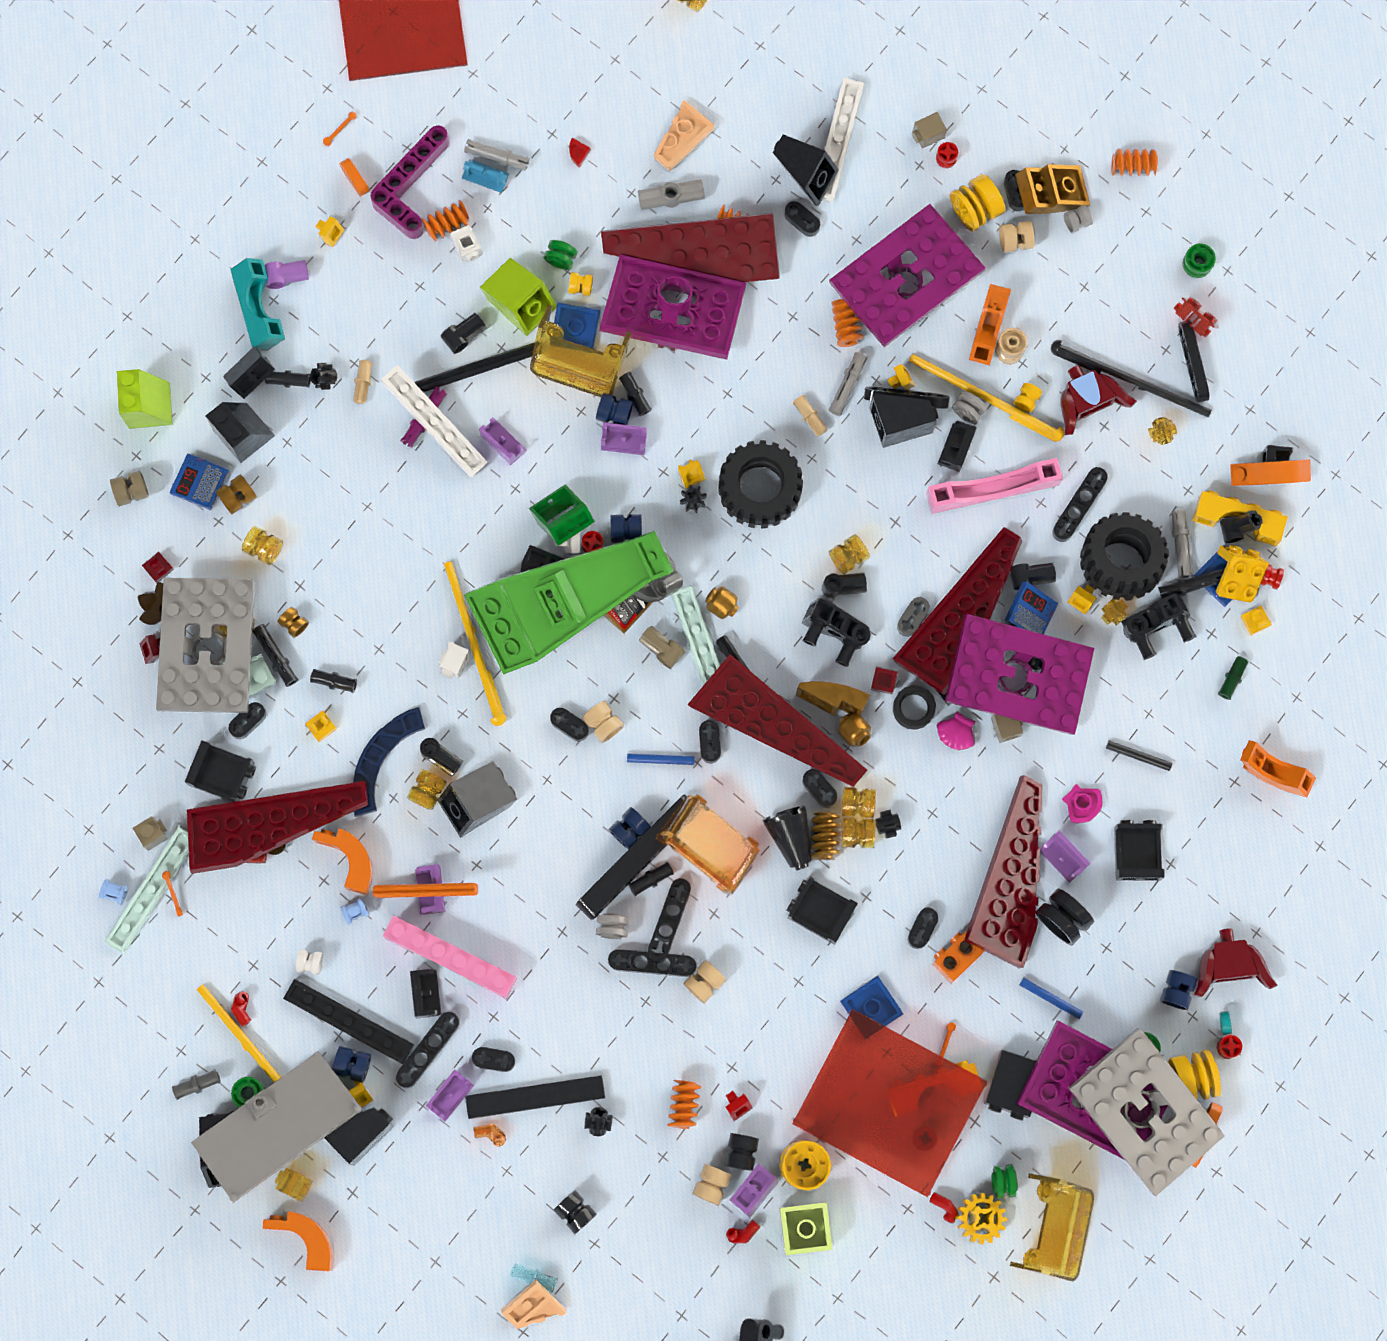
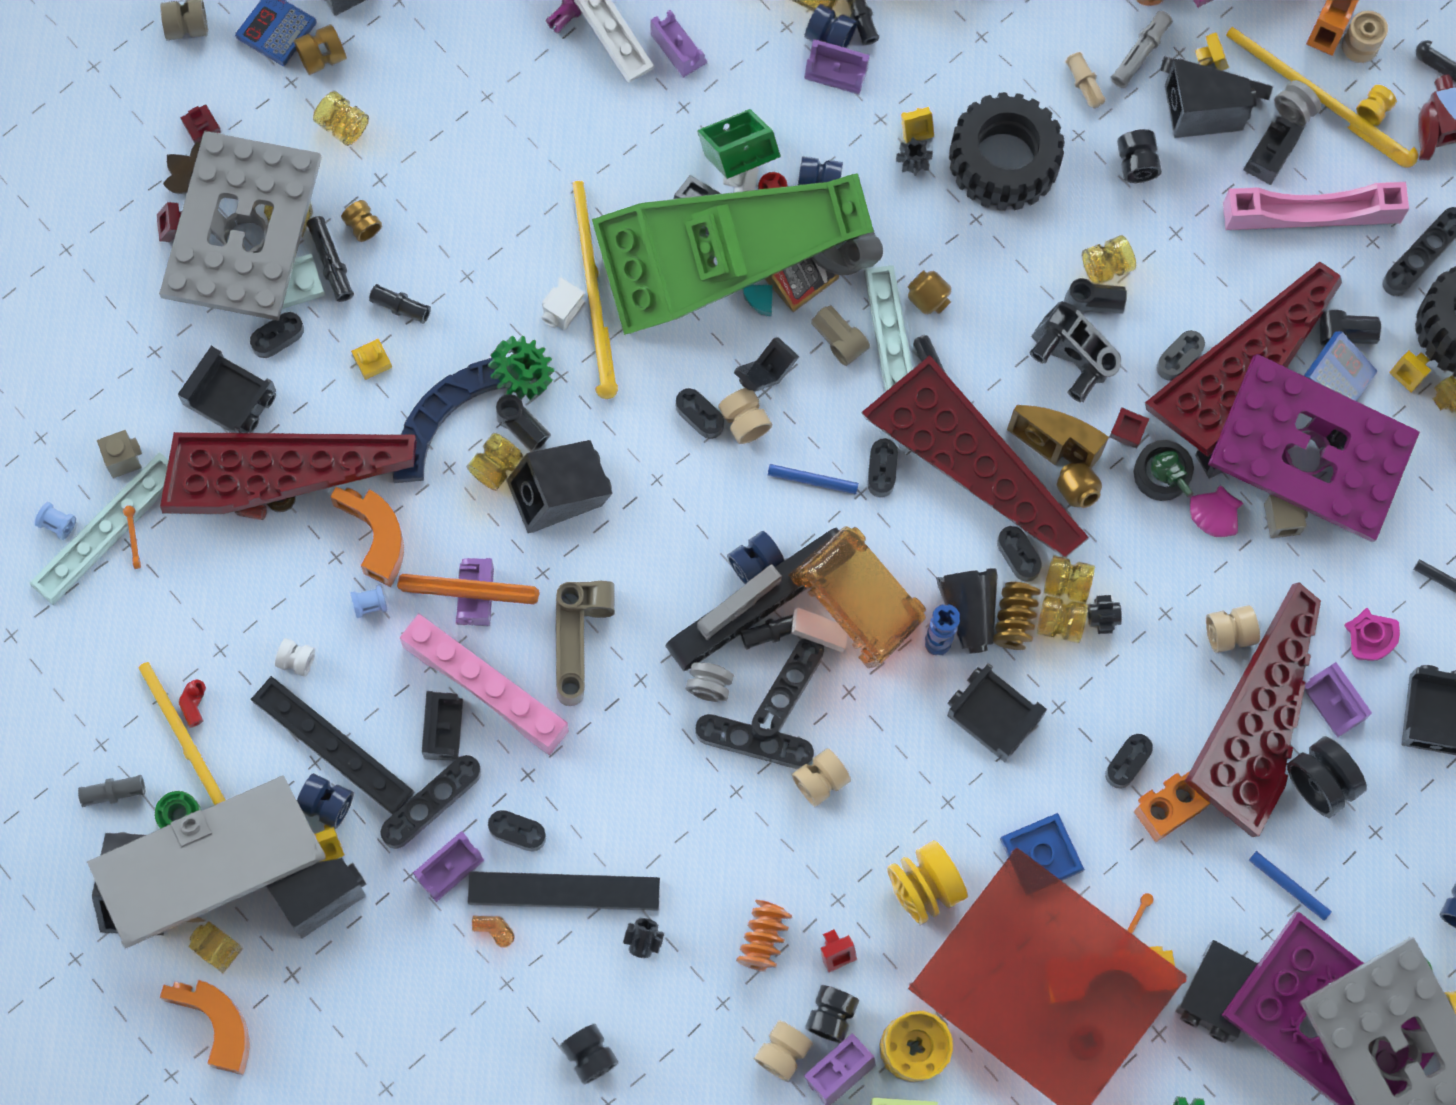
camera: 10 degrees right, 5 degrees down
(432, 715) = (521, 367): none -> green gear
(517, 880) = (594, 600): none -> dark tan piece
(599, 629) = (759, 298): none -> teal tile
(612, 683) = (768, 368): none -> black bracket
(623, 865) = (739, 602): none -> light grey piece
(683, 873) = (819, 629): none -> white piece
(773, 859) = (942, 629): none -> blue piece
(793, 1045) = (931, 880): none -> yellow wheel
(859, 471) = (1139, 155): none -> black wheel
(917, 709) = (1169, 470): none -> dark green piece
(981, 818) = (1237, 628): none -> tan wheel

